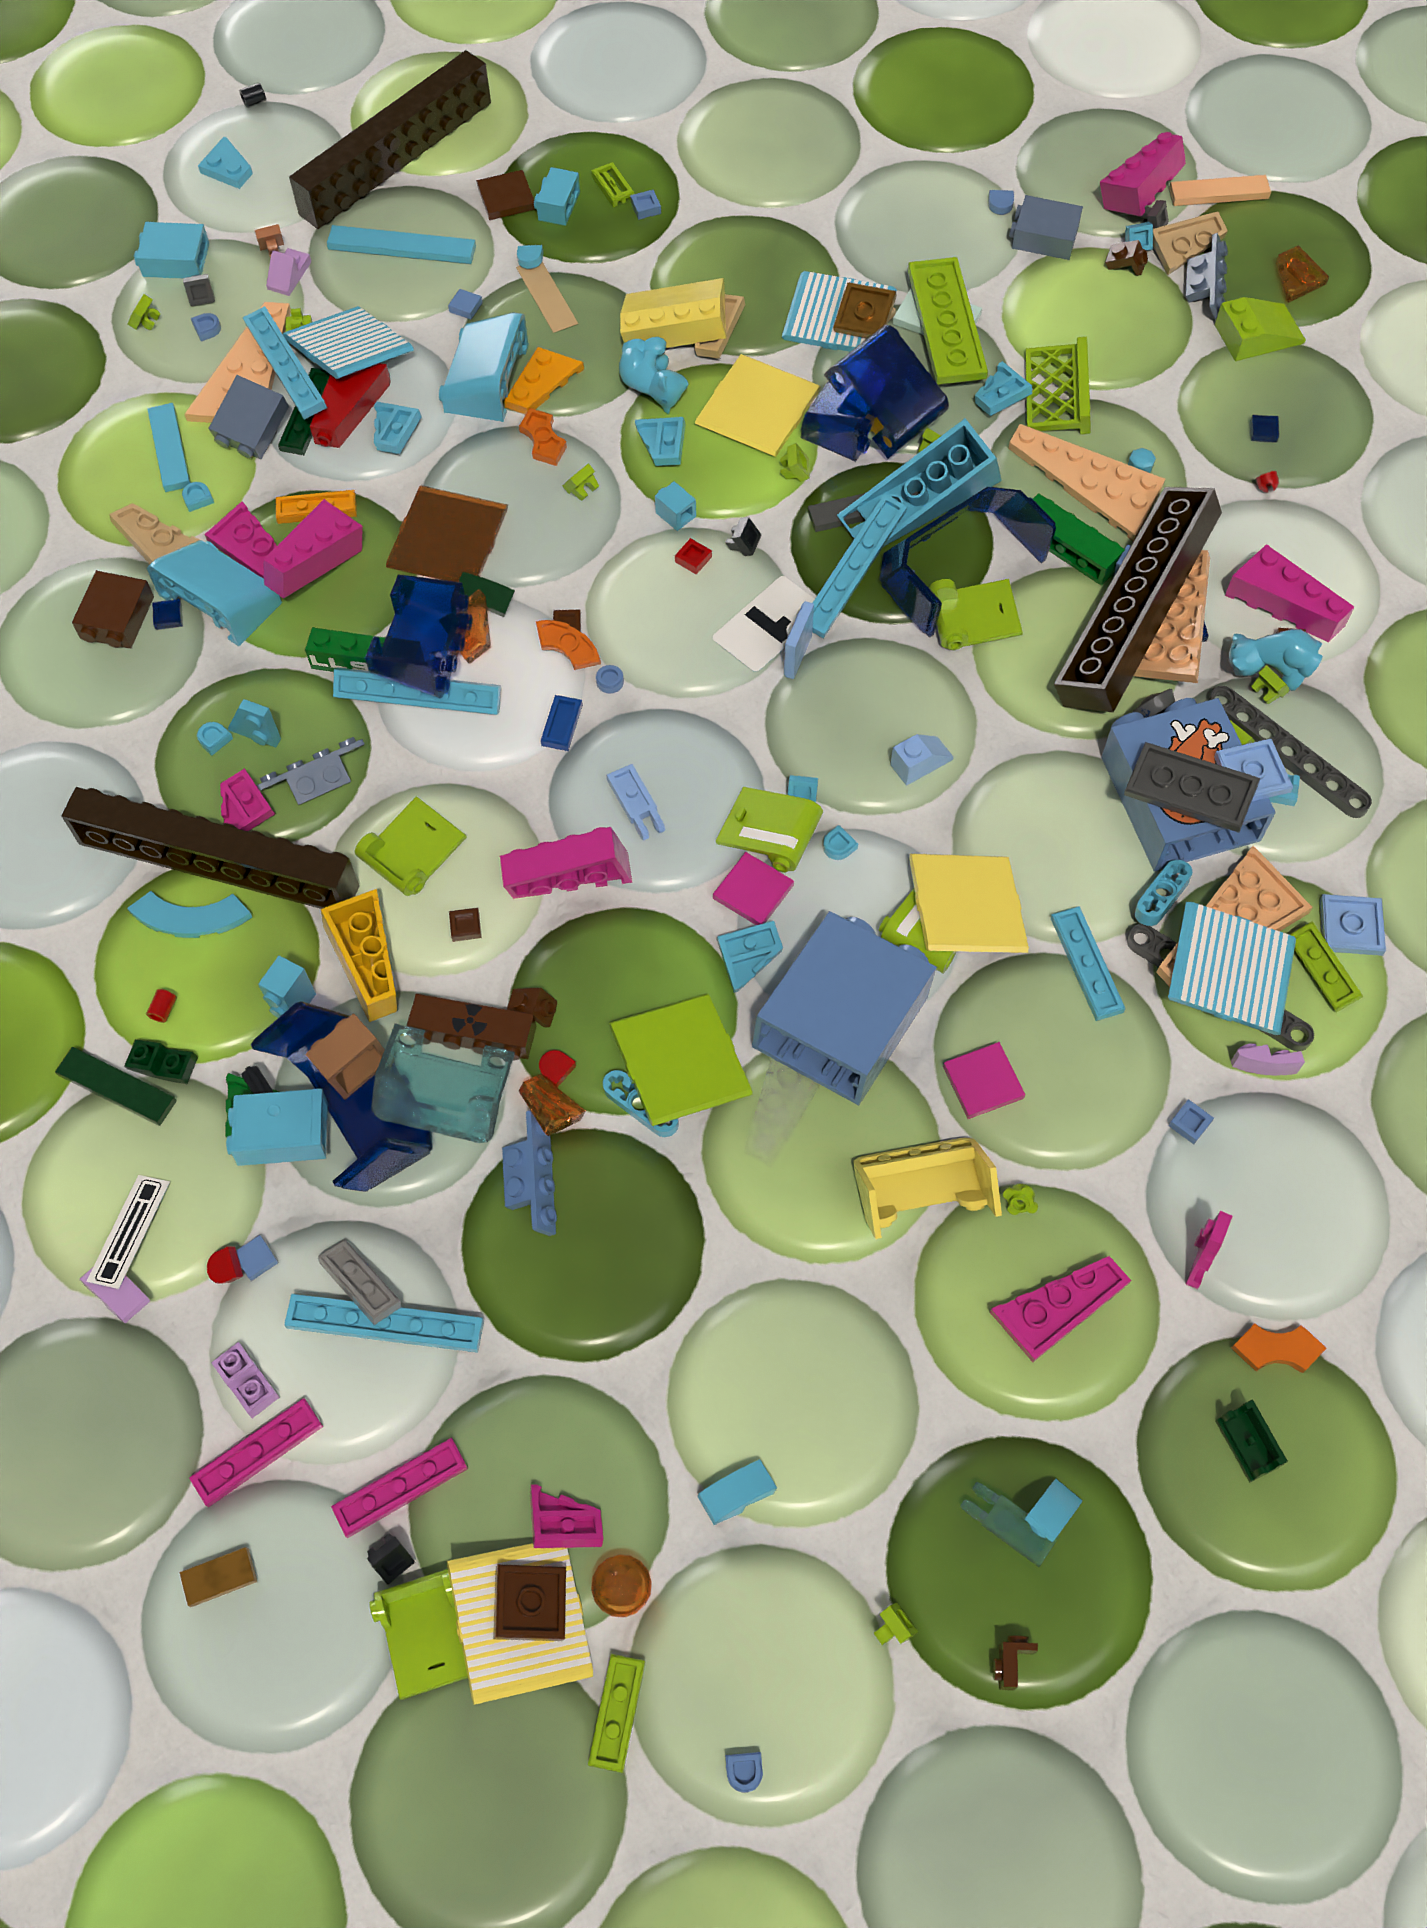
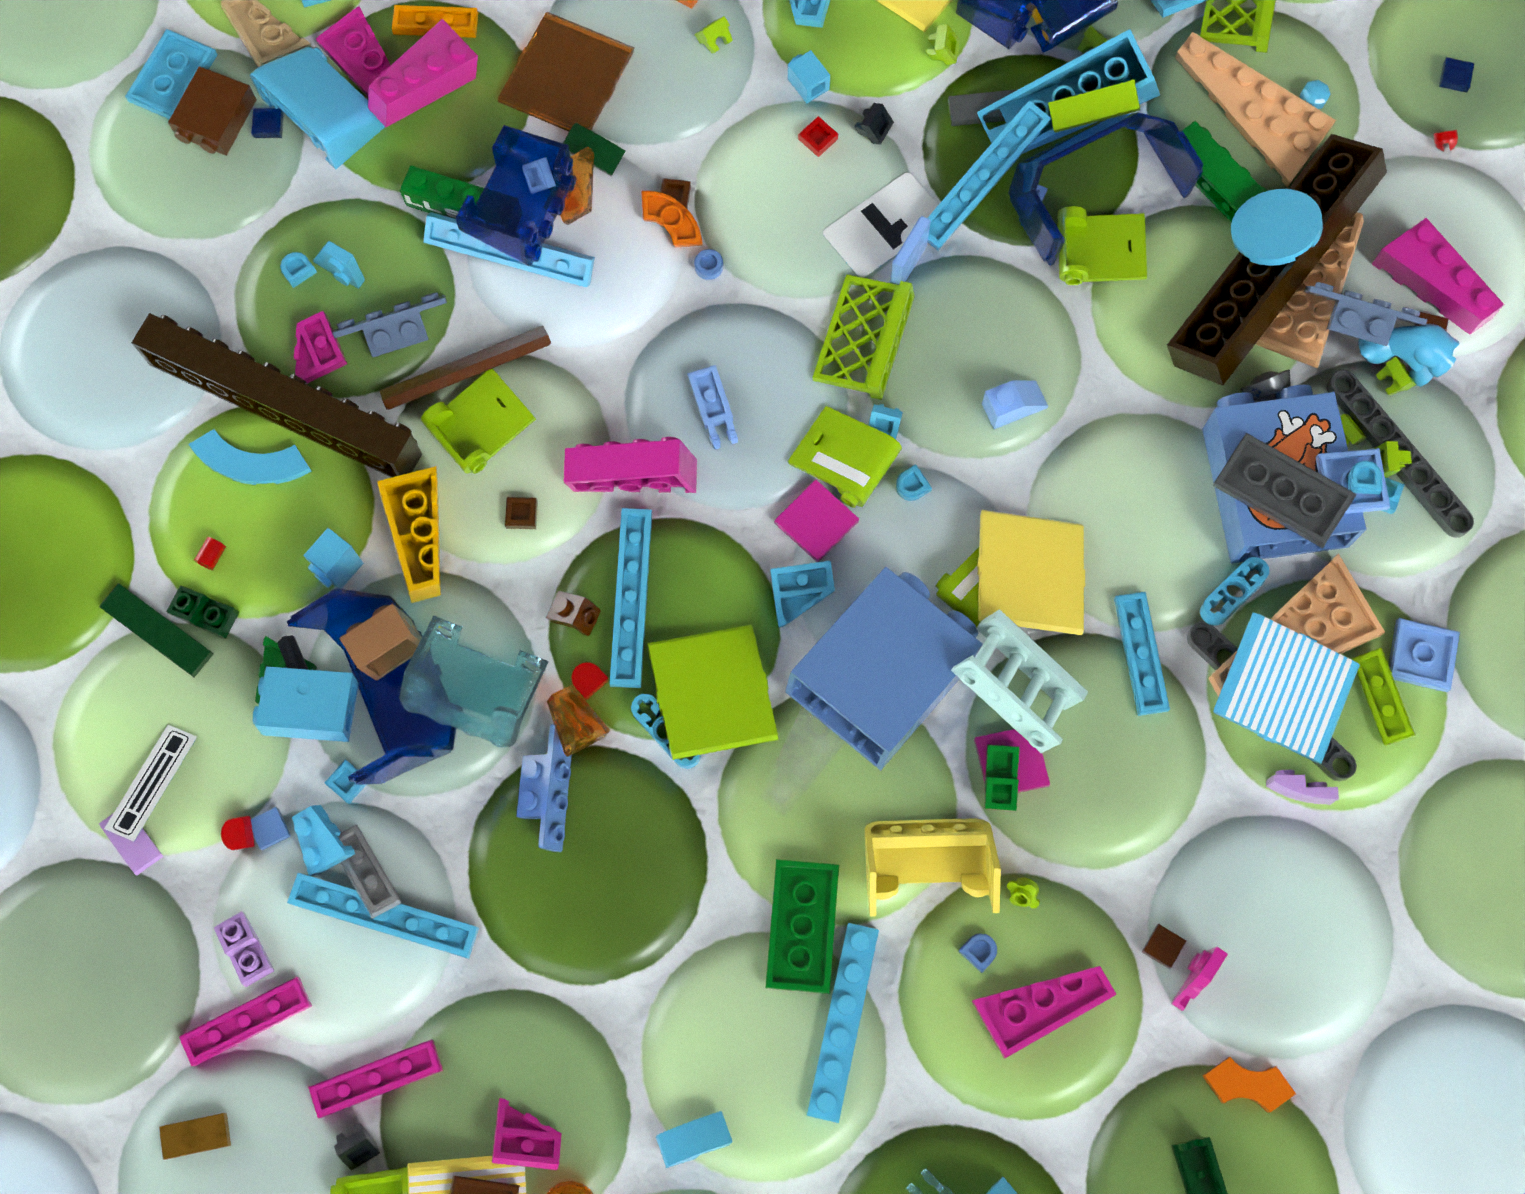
camera: 10 degrees right, 10 degrees up
(65, 584) = (169, 73): none -> medium azure tile
(309, 1259) = (319, 840): none -> medium azure wing
(328, 1200) = (340, 784): none -> medium azure tile
(390, 800) = (465, 367): none -> reddish brown tile
(437, 616) = (538, 175): none -> medium blue tile
(472, 1025) = (511, 625): reddish brown brick -> none
(561, 723) = (651, 306): blue tile -> none
(586, 986) = (631, 598): none -> medium azure plate
(792, 716) = (889, 335): none -> lime fence
(809, 1267) = (802, 926): none -> green plate
(866, 1355) = (842, 1023): none -> medium azure plate
(945, 489) = (1094, 106): none -> lime tile
(977, 1093) = (1001, 777): none -> green slope
(988, 1263) = (979, 951): none -> medium blue tile
(990, 983) = (1032, 661): none -> light aqua fence
(1133, 567) = (1276, 226): none -> medium azure tile
(1167, 1229) = (1164, 946): none -> reddish brown tile
(1191, 1121) = (1211, 838): medium blue tile -> none
(1229, 633) = (1363, 319): none -> sand blue bracket
(1265, 764) = (1365, 478): none -> medium azure tile
(1287, 750) = (1393, 458): none -> lime tile

